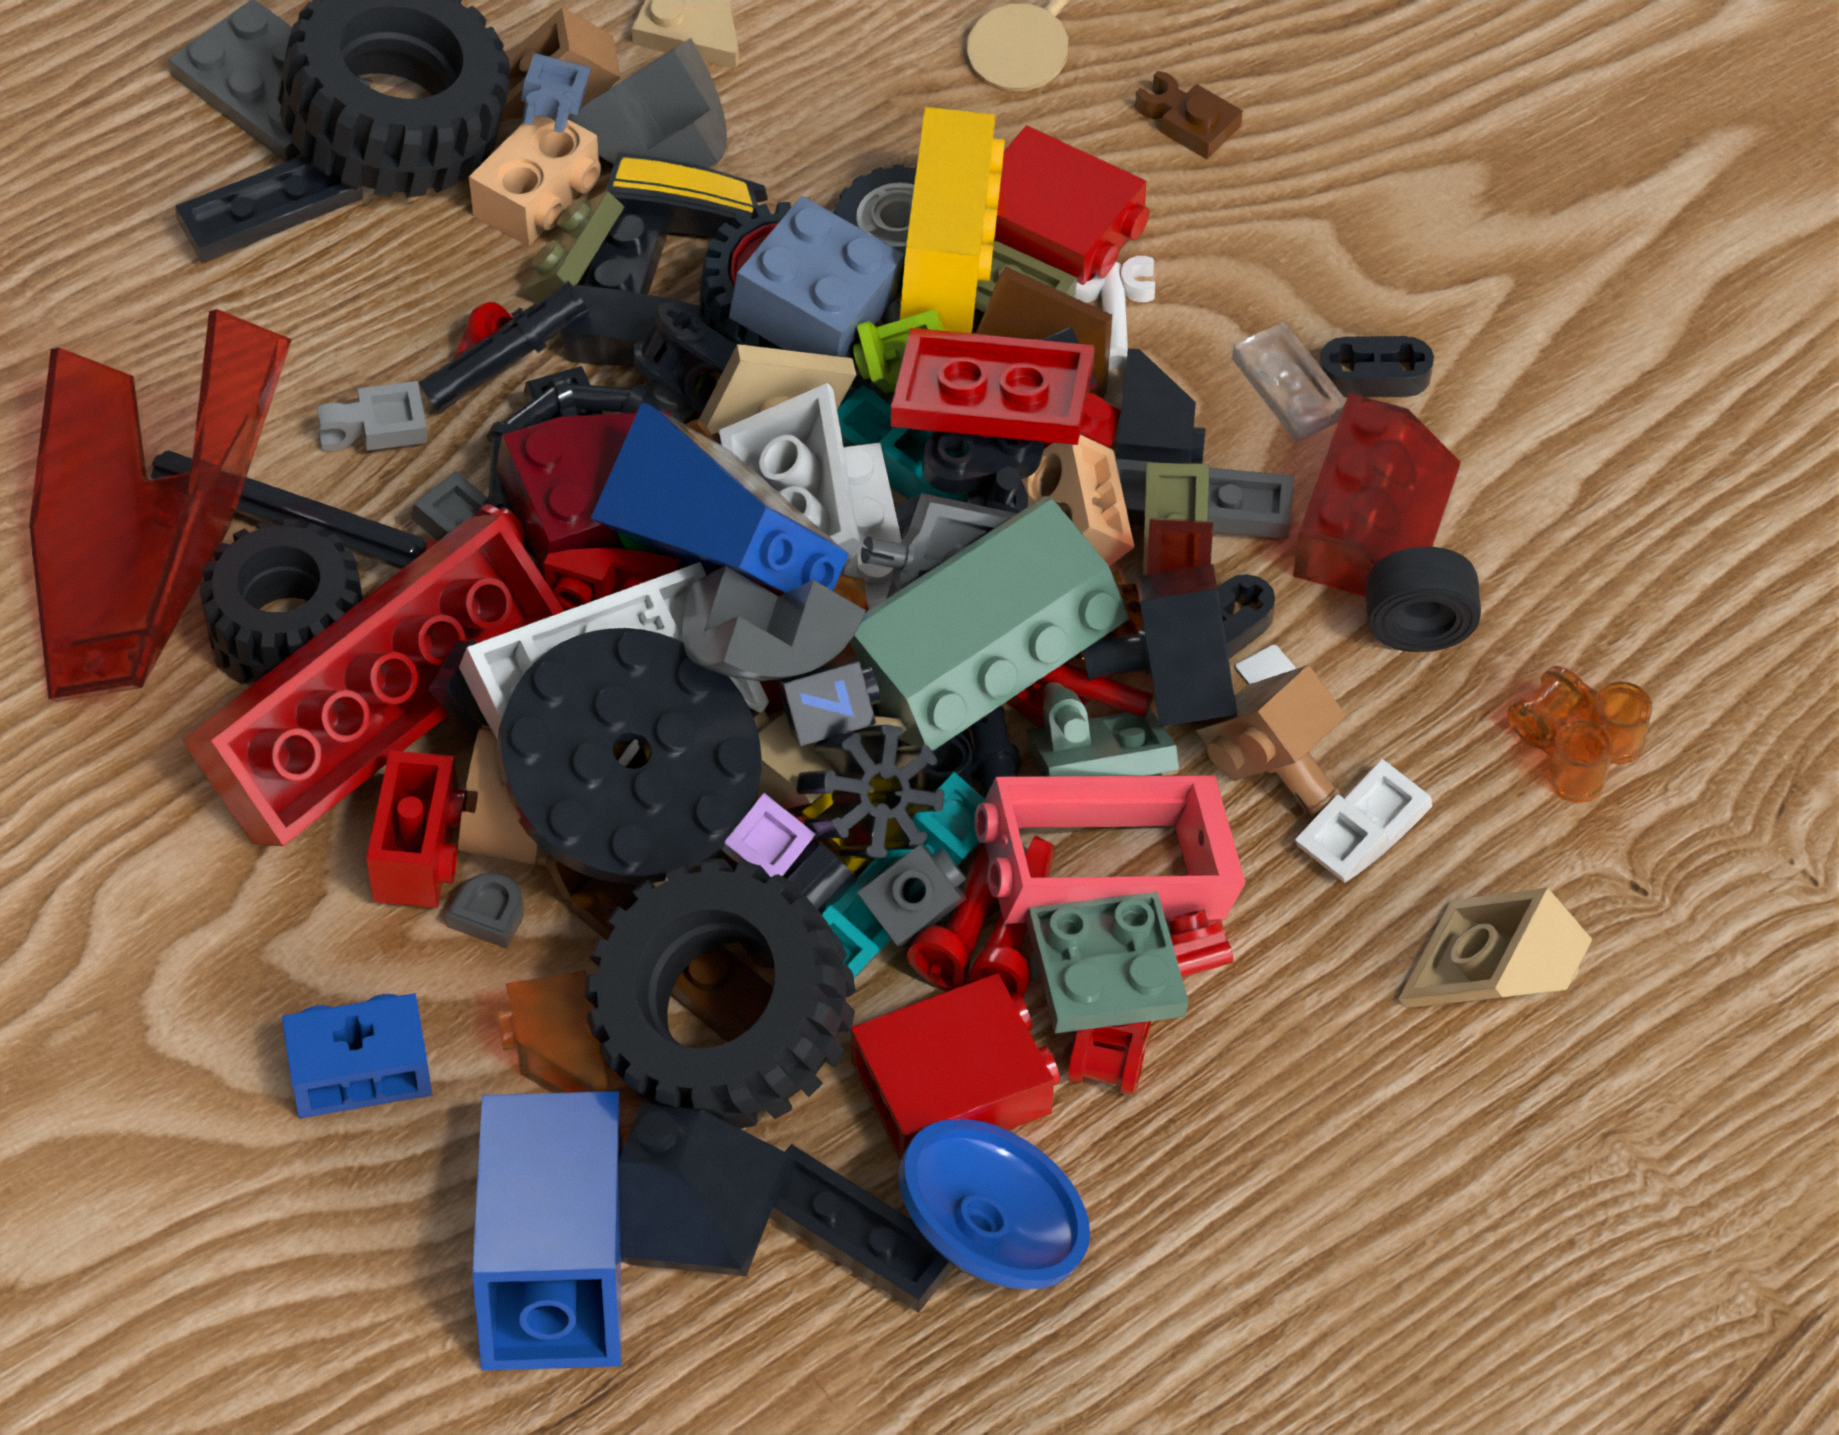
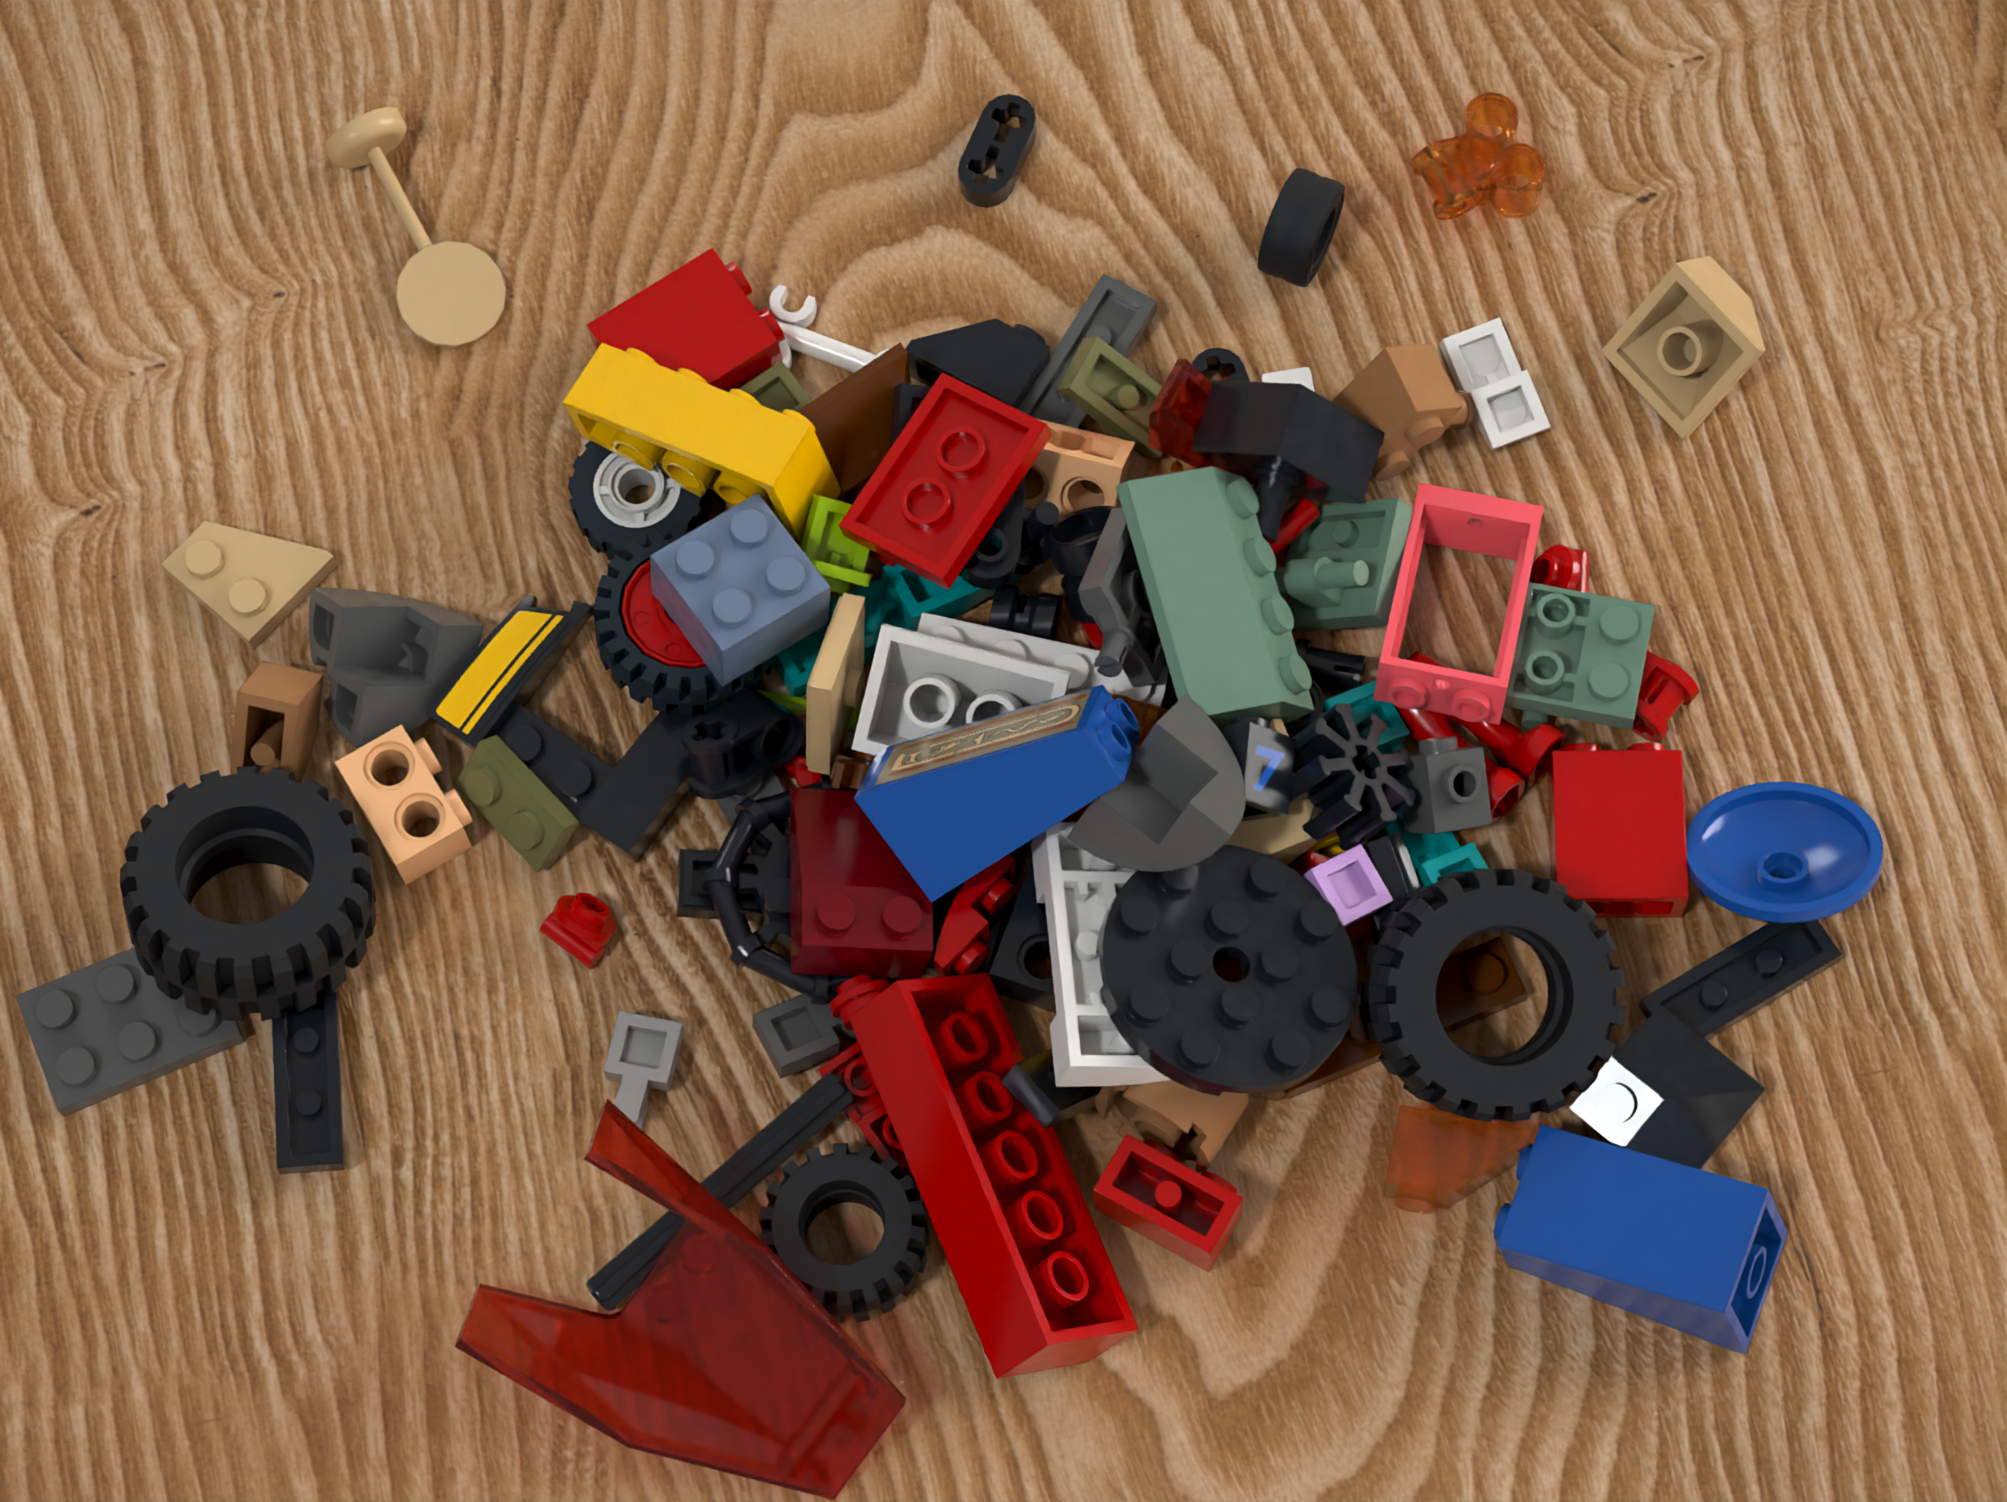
camera: 60 degrees left, 15 degrees up
(356, 1055) = (1394, 1304): blue brick -> none
(488, 909) = (1262, 1170): dark grey tile -> none
(505, 346) = (622, 912): black pin -> none
(553, 90) = (338, 736): sand blue plate -> none
(1191, 118) = (620, 172): reddish brown plate -> none
(1289, 381) = (985, 230): clear plate -> none
(1375, 494) = (1158, 222): clear red slope -> none

